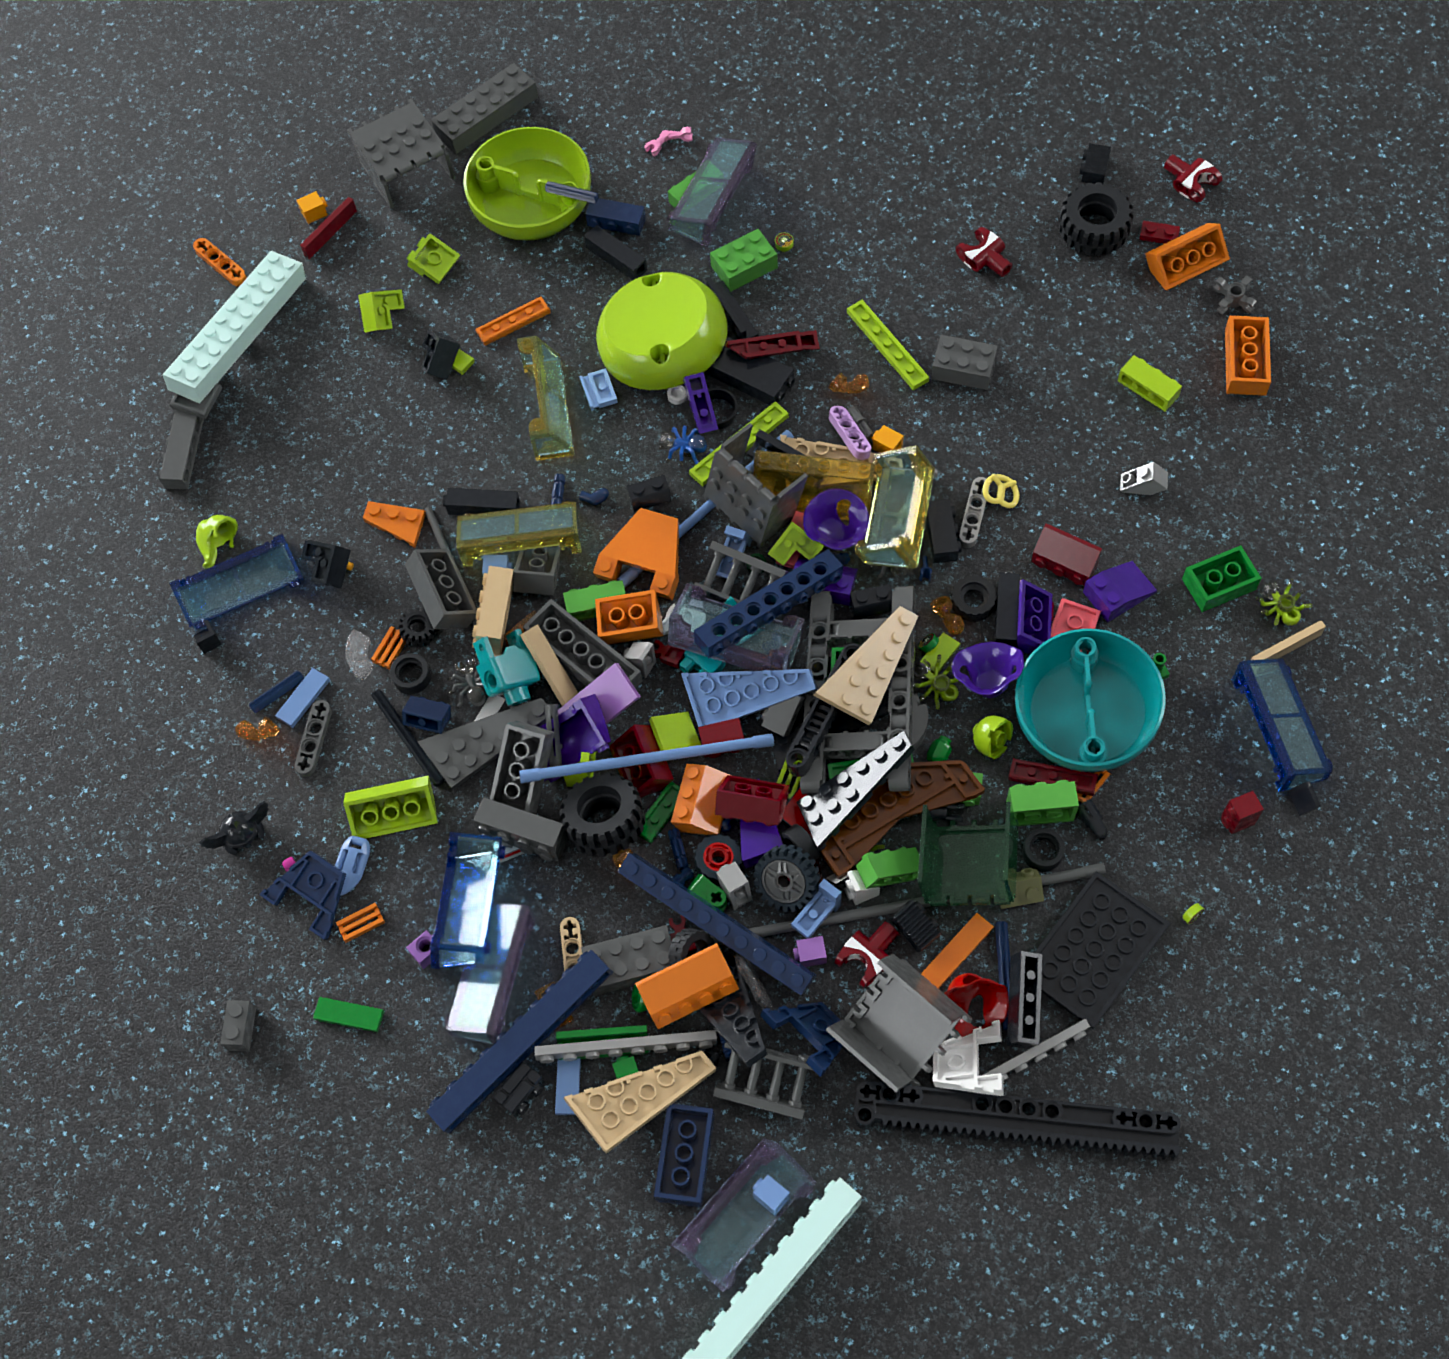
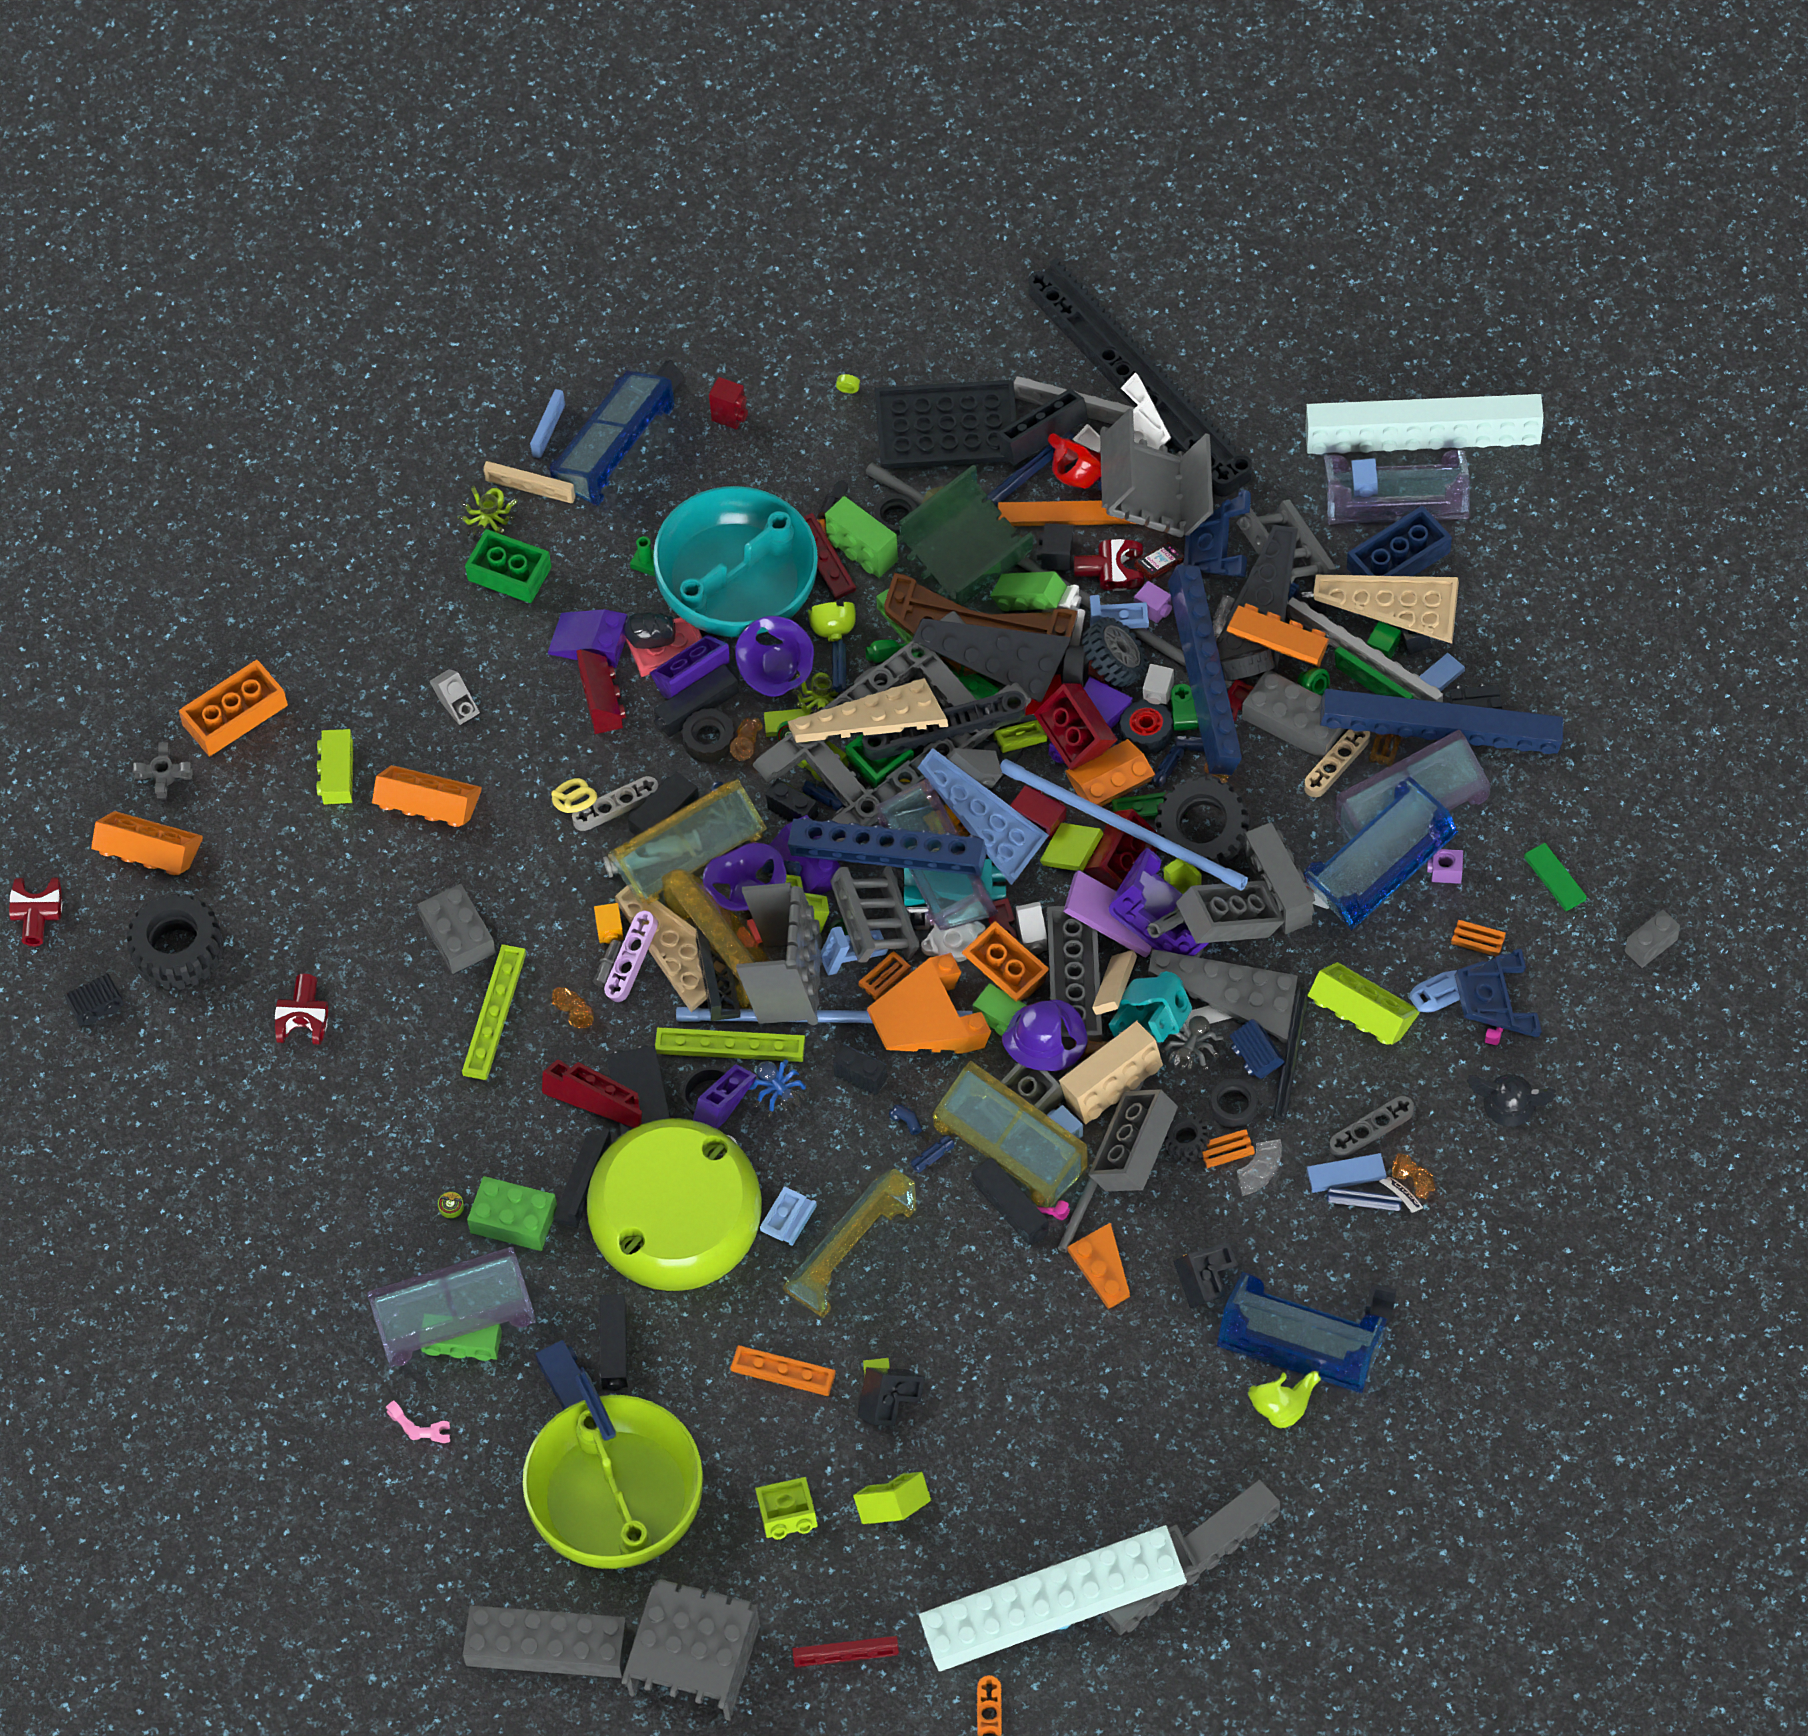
camera: 135 degrees left, 5 degrees down
(256, 714) = (1411, 1202): none -> white sticker
(312, 207) = (836, 1694): light orange brick -> none
(450, 527) = (1060, 1211): none -> dark pink hand
(555, 584) = (1035, 1036): none -> dark purple piece
(700, 546) = (870, 989): none -> orange tile
(841, 987) = (1159, 561): none -> tile
(950, 710) = (839, 666): none -> dark blue axle
(1081, 415) = (425, 795): none -> orange slope
(1091, 616) = (650, 630): none -> black piece
(1158, 232) = (133, 887): dark red plate -> none
(1330, 694) = (547, 423): none -> medium blue tile

